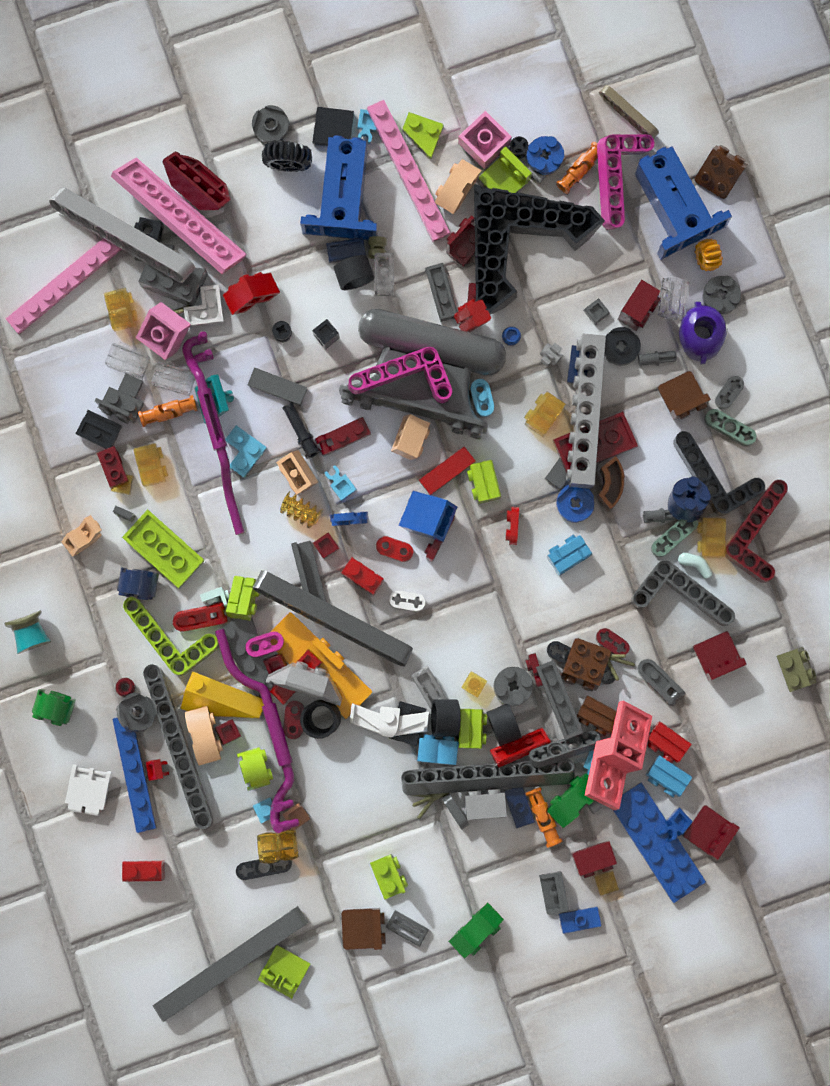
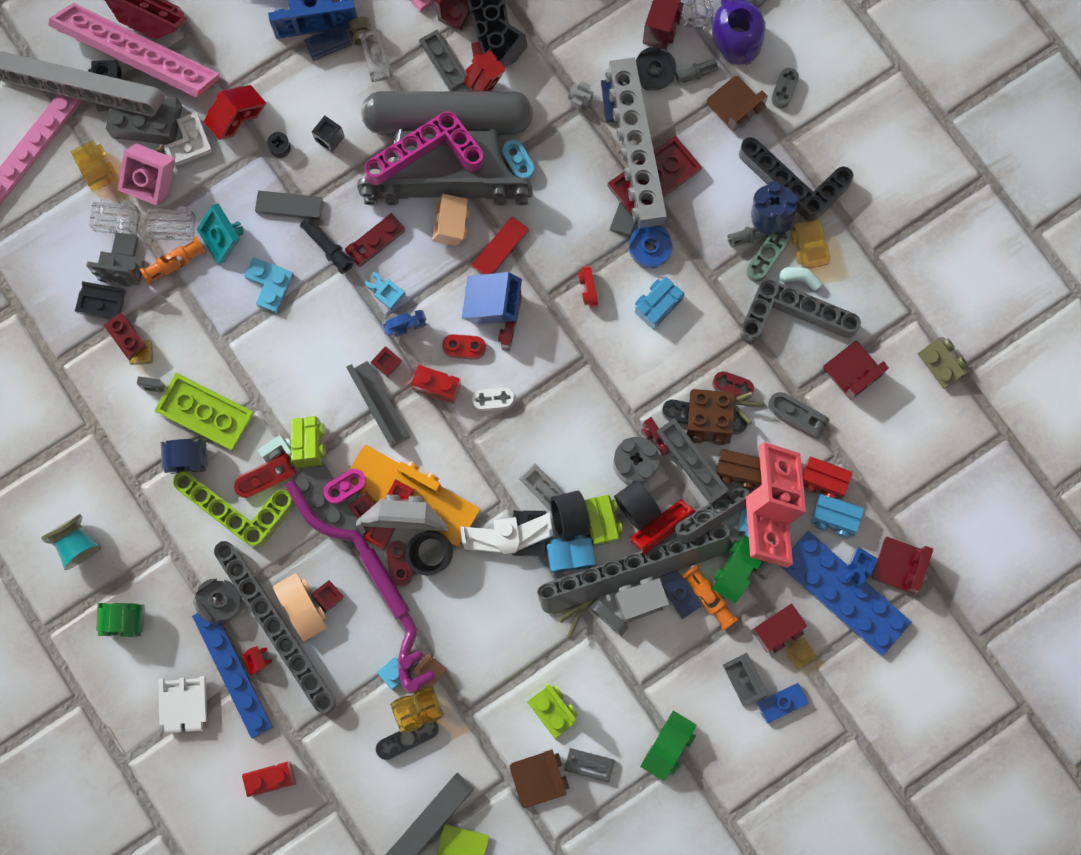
camera: 15 degrees left, 5 degrees down
(82, 536) = (109, 421): light nougat brick -> none
(121, 682) = (193, 572): dark red plate -> none
(150, 465) = (167, 323): clear yellow brick -> none
(213, 422) = (226, 258): magenta piece -> none
(220, 698) = (309, 560): yellow wedge -> none
(254, 768) = (368, 628): lime brick -> none
(297, 472) = (333, 289): light nougat brick -> none
(300, 510) = (348, 331): clear yellow piece -> none
(332, 618) = (413, 436): dark grey beam -> none
(354, 272) = (342, 61): black piece -> none
(474, 684) = (592, 470): clear yellow plate -> none
(484, 481) = (544, 247): lime brick -> none
(511, 336) = (532, 87): blue plate -> none
(544, 414) = (590, 159): clear yellow brick -> none
(596, 311) = (617, 40): dark grey tile -> none
(613, 483) = (686, 212): reddish brown brick -> none
(745, 429) = (810, 134): sand green beam -> none
(752, 529) = (851, 224): dark red beam -> none

